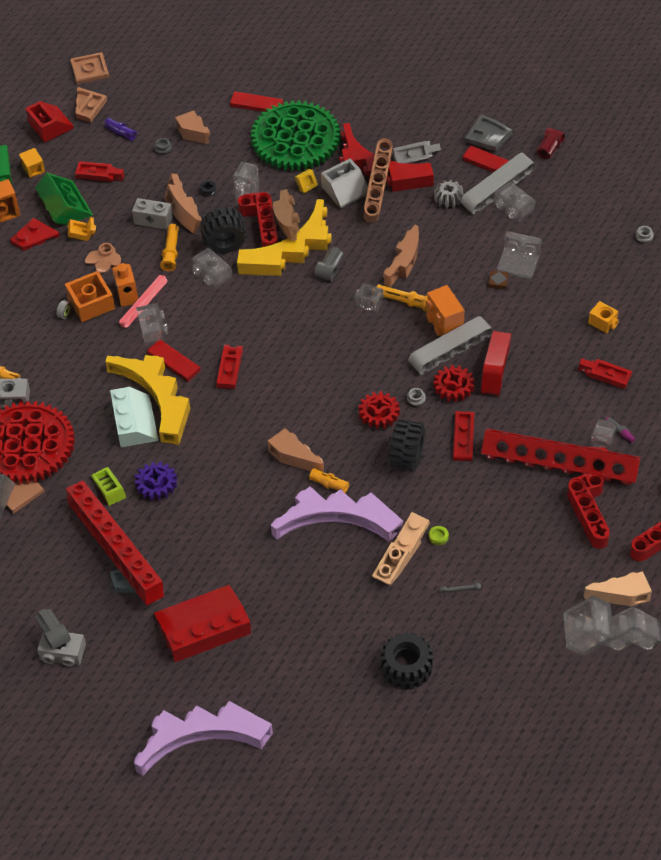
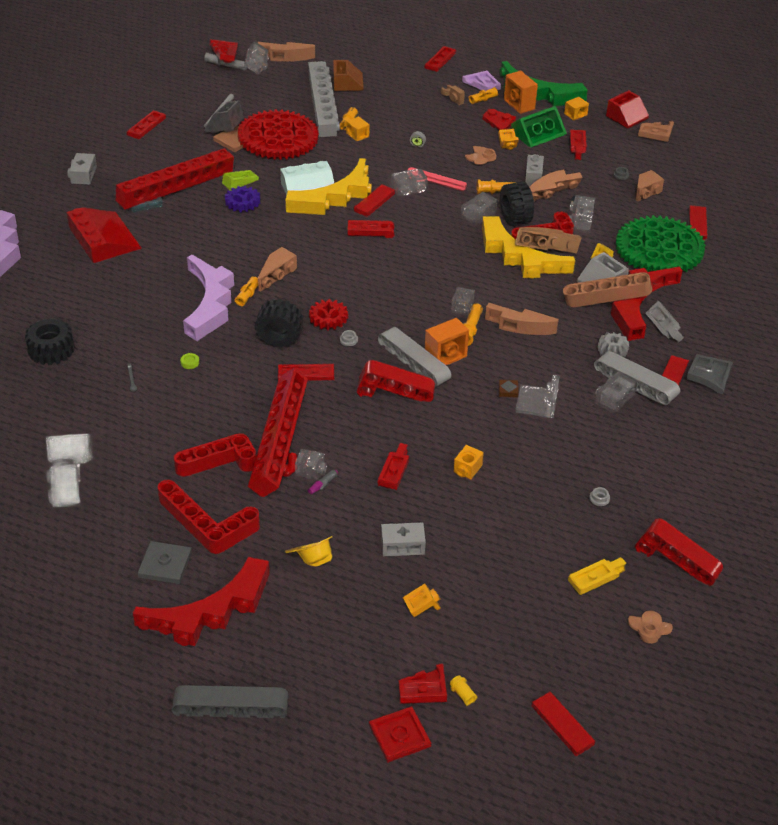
camera: 80 degrees right, 10 degrees down
(29, 363) = (357, 128): none -> light orange brick
(54, 632) = (86, 154): dark grey piece -> none
(89, 68) = (704, 129): nougat tile -> none
(89, 296) = (430, 146): orange brick -> none
(120, 128) = (637, 146): dark purple pin -> none
(124, 278) = (448, 161): orange torso -> none
(329, 265) = (494, 274): dark grey piece -> none
(401, 550) = (166, 335): light nougat slope -> none
(453, 383) = (360, 355): red gear -> none
(551, 140) = (720, 419): dark red piece -> none
(626, 590) = (117, 481): light nougat slope -> none

